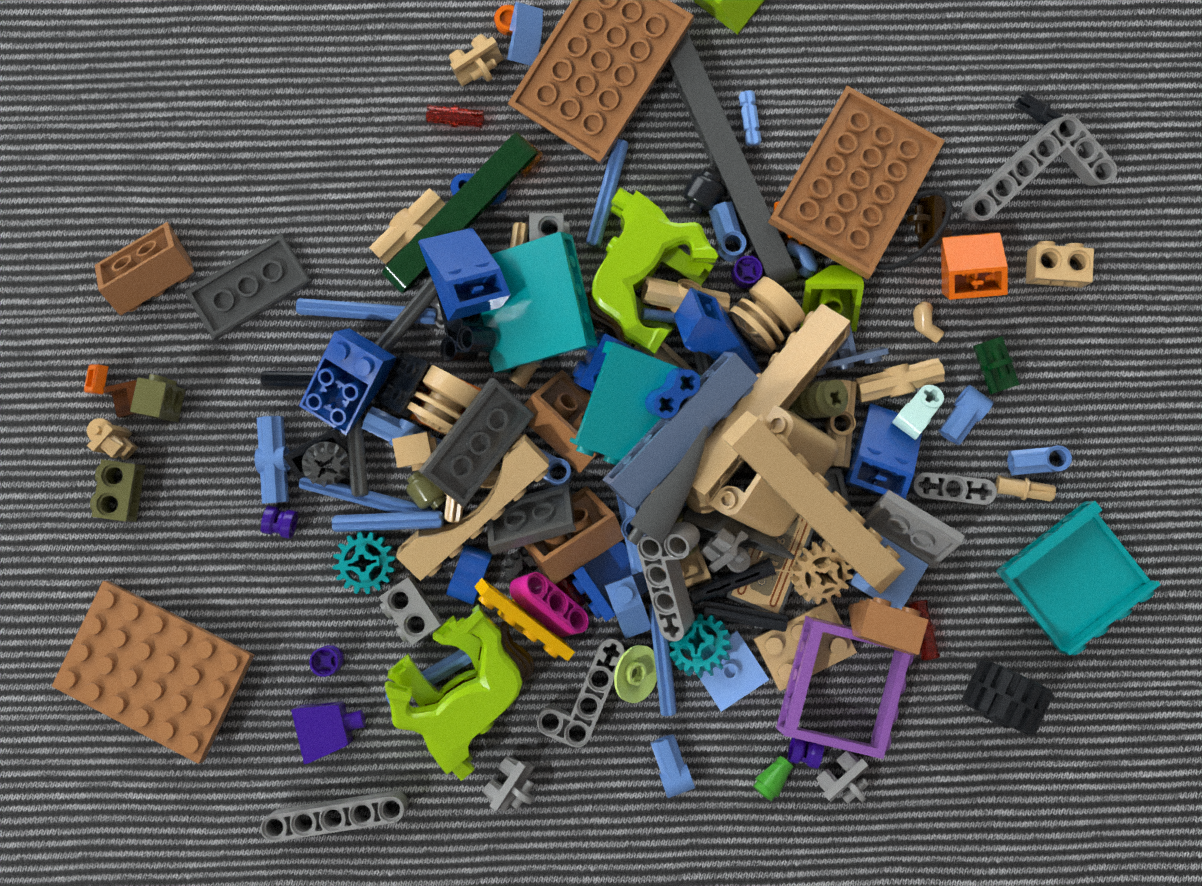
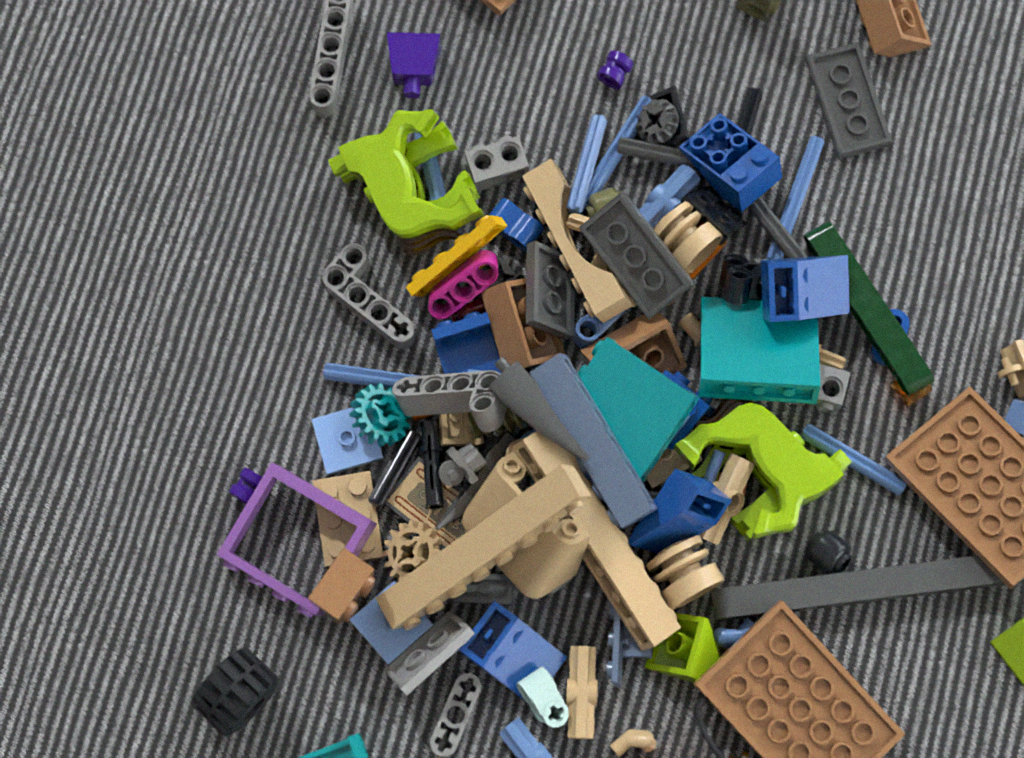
camera: 110 degrees right, 10 degrees down
(270, 459) = (675, 73): medium blue piece -> none
(321, 660) = (473, 71): dark purple wheel -> none
(363, 551) = (566, 135): teal gear -> none
(406, 225) = (870, 257): tan piece -> none
(413, 449) = (647, 198): tan brick -> none
(454, 116) = (969, 334): clear red pin -> none
(515, 788) = (304, 210): light grey hips -> none
(628, 606) = (439, 357): medium blue slope -> none
(635, 674) = (365, 354): yellowish green dish -> none
(672, 392) = (630, 440): blue axle -> none
(674, 773) = (266, 358): medium blue piece -> none
(727, 229) = (784, 565): medium blue piece -> none
(750, 118) = (895, 625): light blue axle -> none
(750, 267) = (739, 569): dark purple wheel -> none
(773, 778) = (232, 449): bright green cone -> none
(821, 400) = (583, 598): olive piece -> none
(834, 787) = (205, 504): light grey hips -> none
(844, 438) = (573, 626): tan piece -> none
(929, 646) = (325, 640): clear red pin -> none

